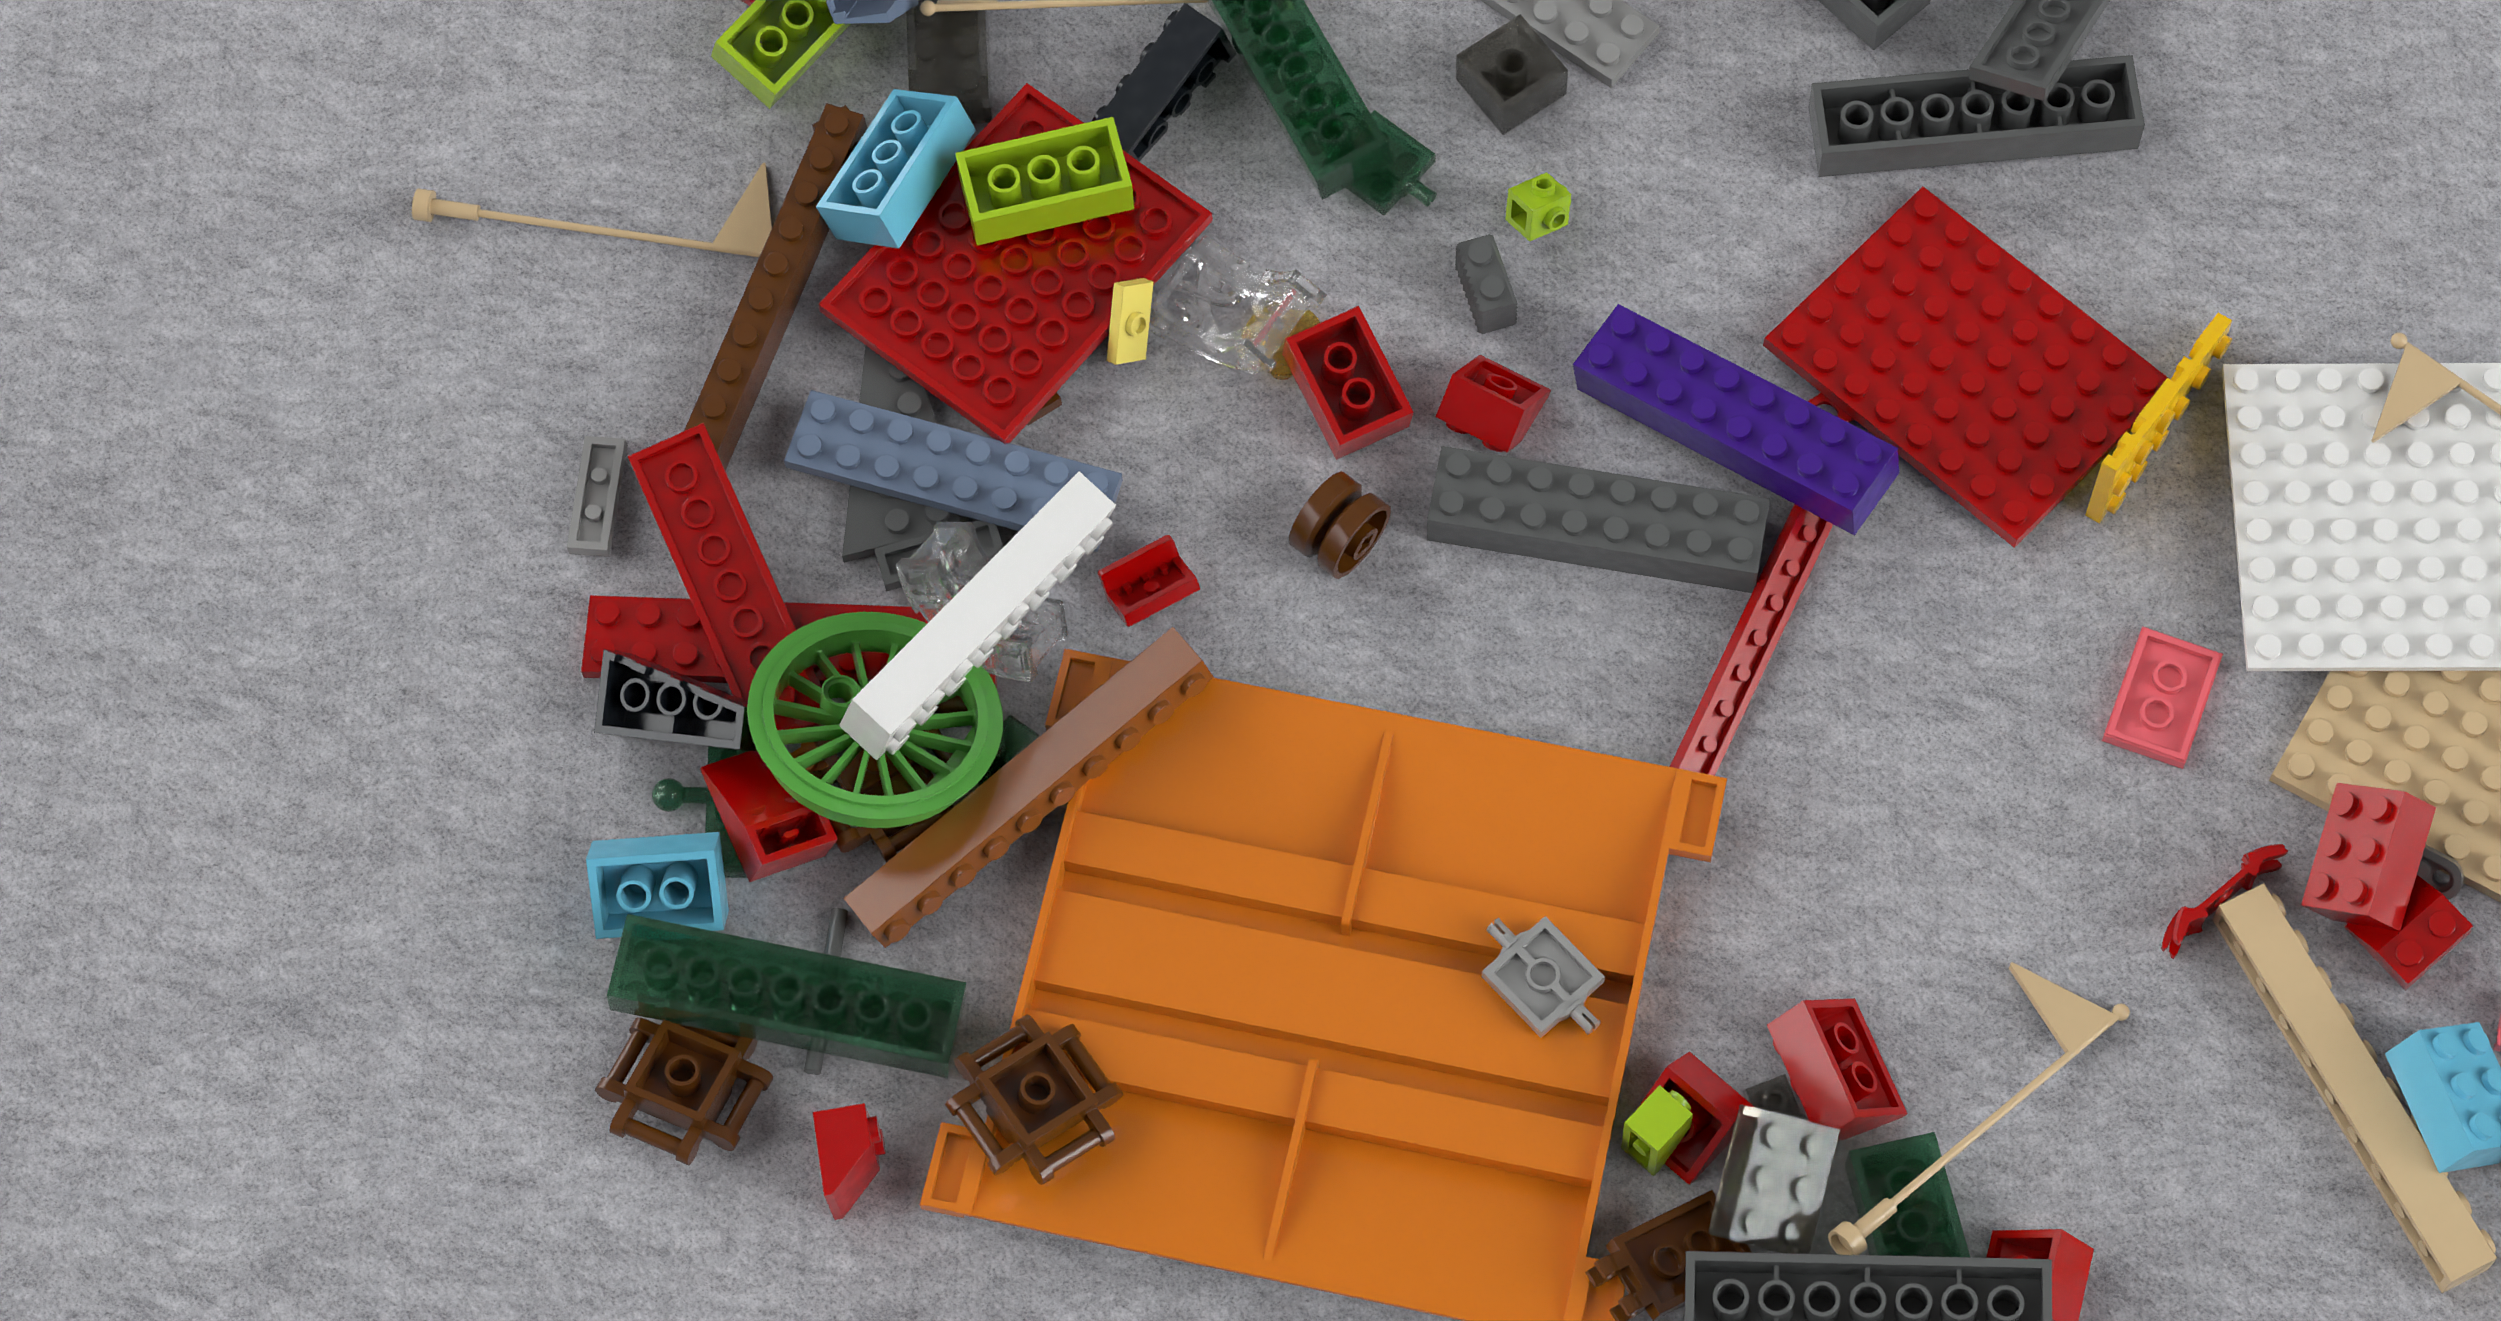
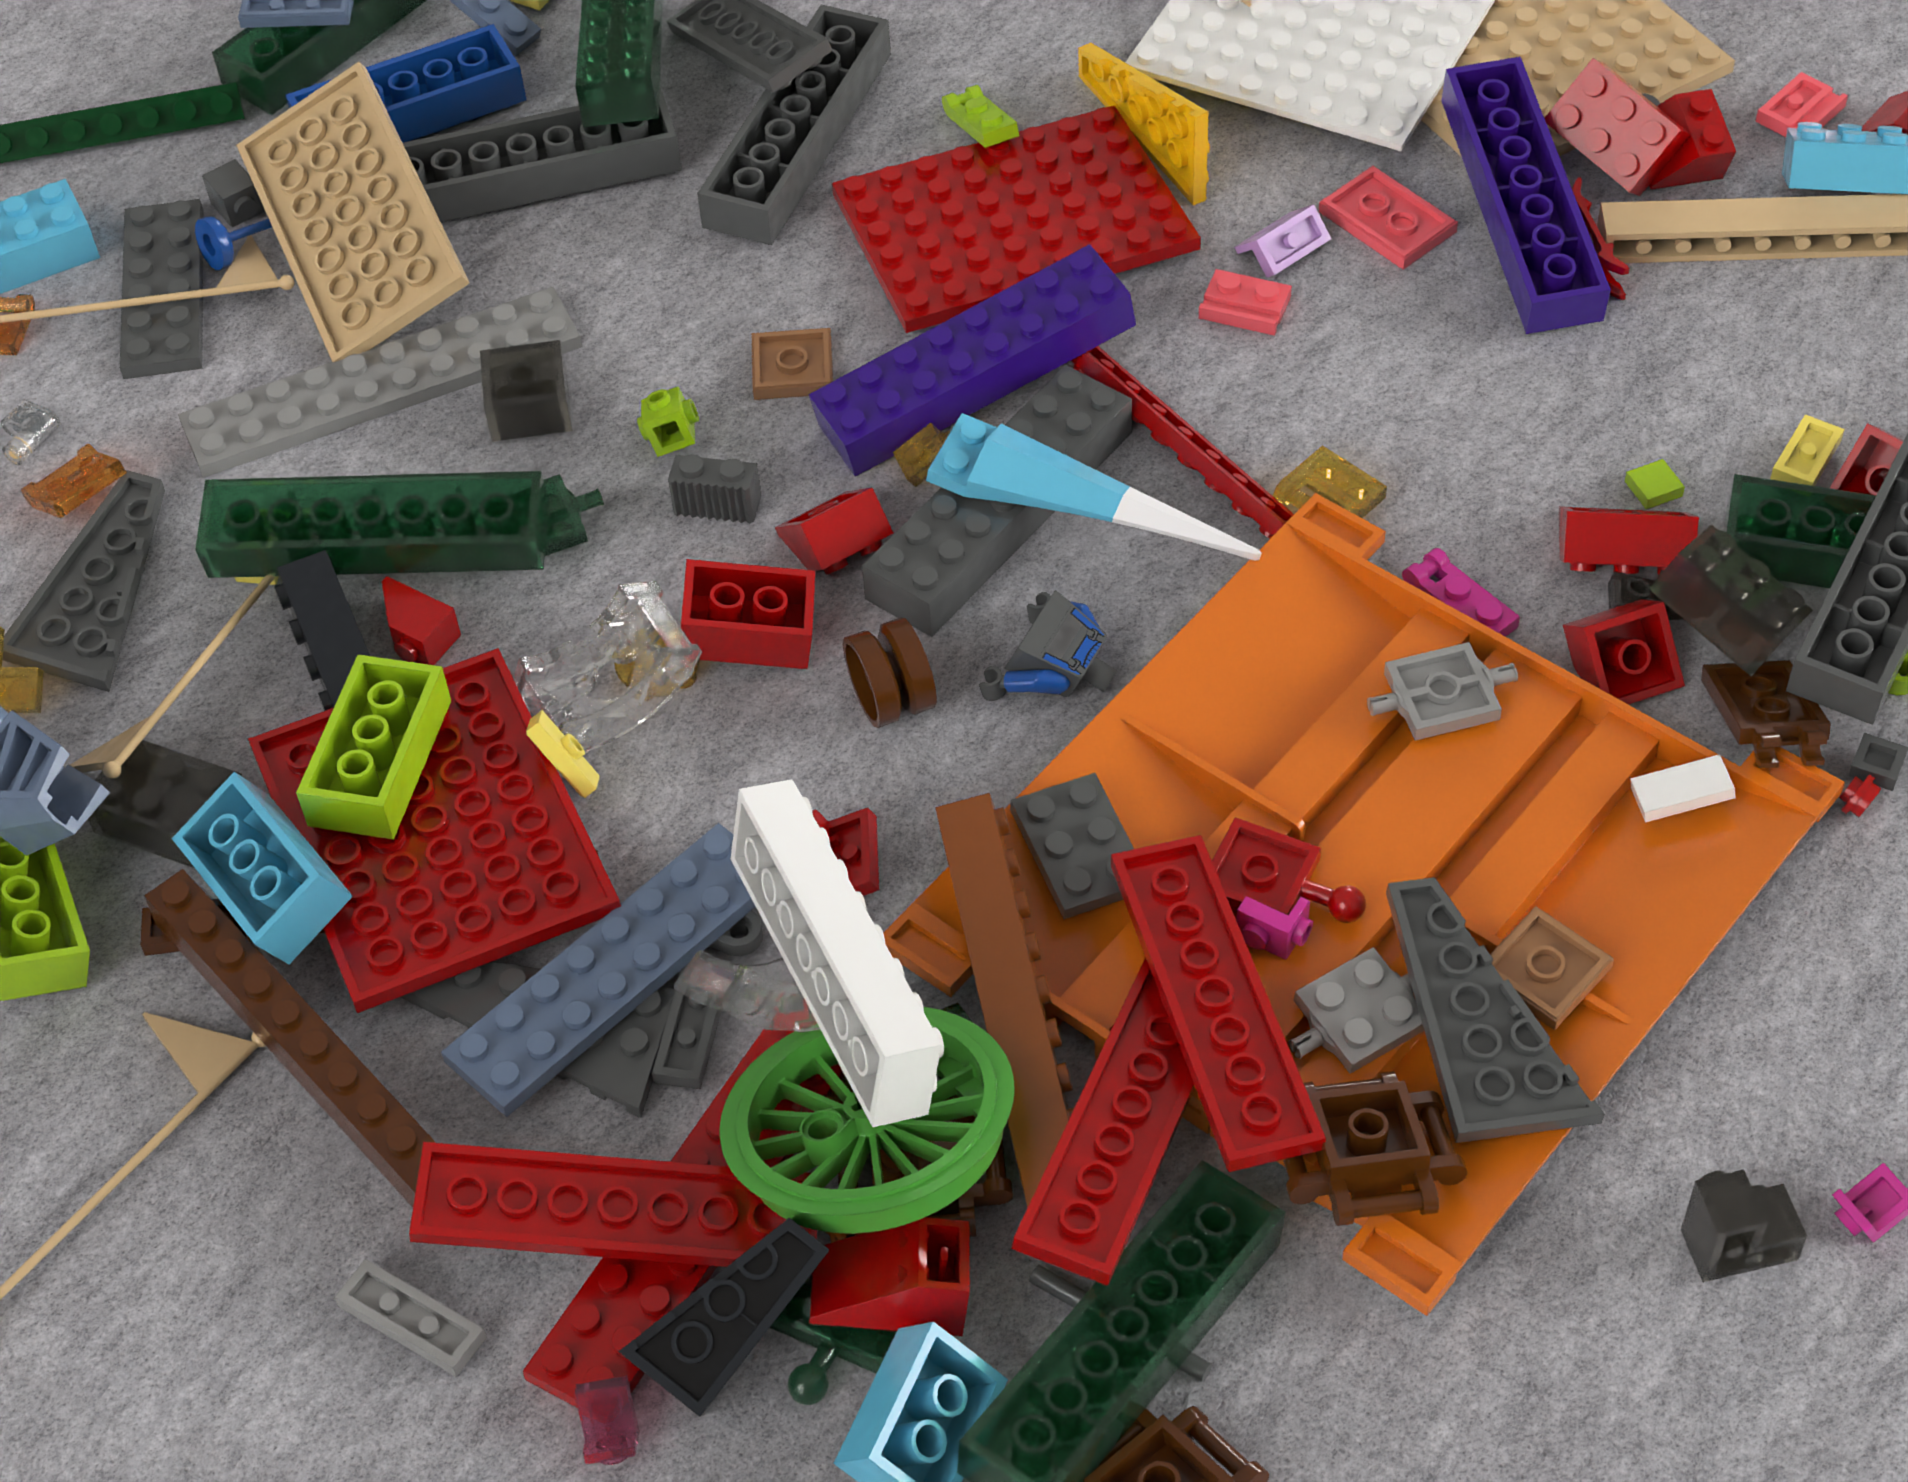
camera: 65 degrees left, 15 degrees down
(573, 676) = (607, 1420): none -> clear pink bracket
(847, 1154) = (1338, 1360): red slope -> none
(979, 907) = (1111, 1142): none -> red plate
(1105, 924) = (1217, 1004): none -> red plate
(1174, 1045) = (1357, 1011): none -> light grey plate
(1174, 1152) = (1481, 1035): none -> dark grey wing
(1211, 935) = (1274, 930): none -> dark pink bracket
(1218, 135) = (418, 623): none -> red slope
(1231, 757) = (1072, 841): none -> dark grey plate
(1270, 915) = (1278, 872): none -> red plate
(1284, 1172) = (1550, 966): none -> medium nougat tile
(1443, 645) = (1053, 653): none -> torso
(1534, 1216) = (1682, 788): none -> white tile
(1601, 511) = (1018, 470): none -> medium azure plate
(1625, 437) = (919, 452): none -> clear yellow bracket
(1656, 1129) = (1638, 665): lime slope -> none
(1680, 270) = (791, 362): none -> medium nougat tile
(1691, 957) = (1460, 592): none -> dark pink plate
(1773, 793) = (1334, 480): none -> clear yellow plate
(1926, 1072) = (1654, 484): none -> lime tile
(1971, 617) = (1245, 302): none -> coral plate
(2034, 1195) = (1807, 452): none -> light yellow plate
(2069, 617) = (1286, 240): none -> lavender panel
(2073, 1024) = (1663, 370): tan piece -> none
(2081, 271) = (979, 117): none -> lime plate
(2230, 805) = (1525, 196): none -> dark purple brick

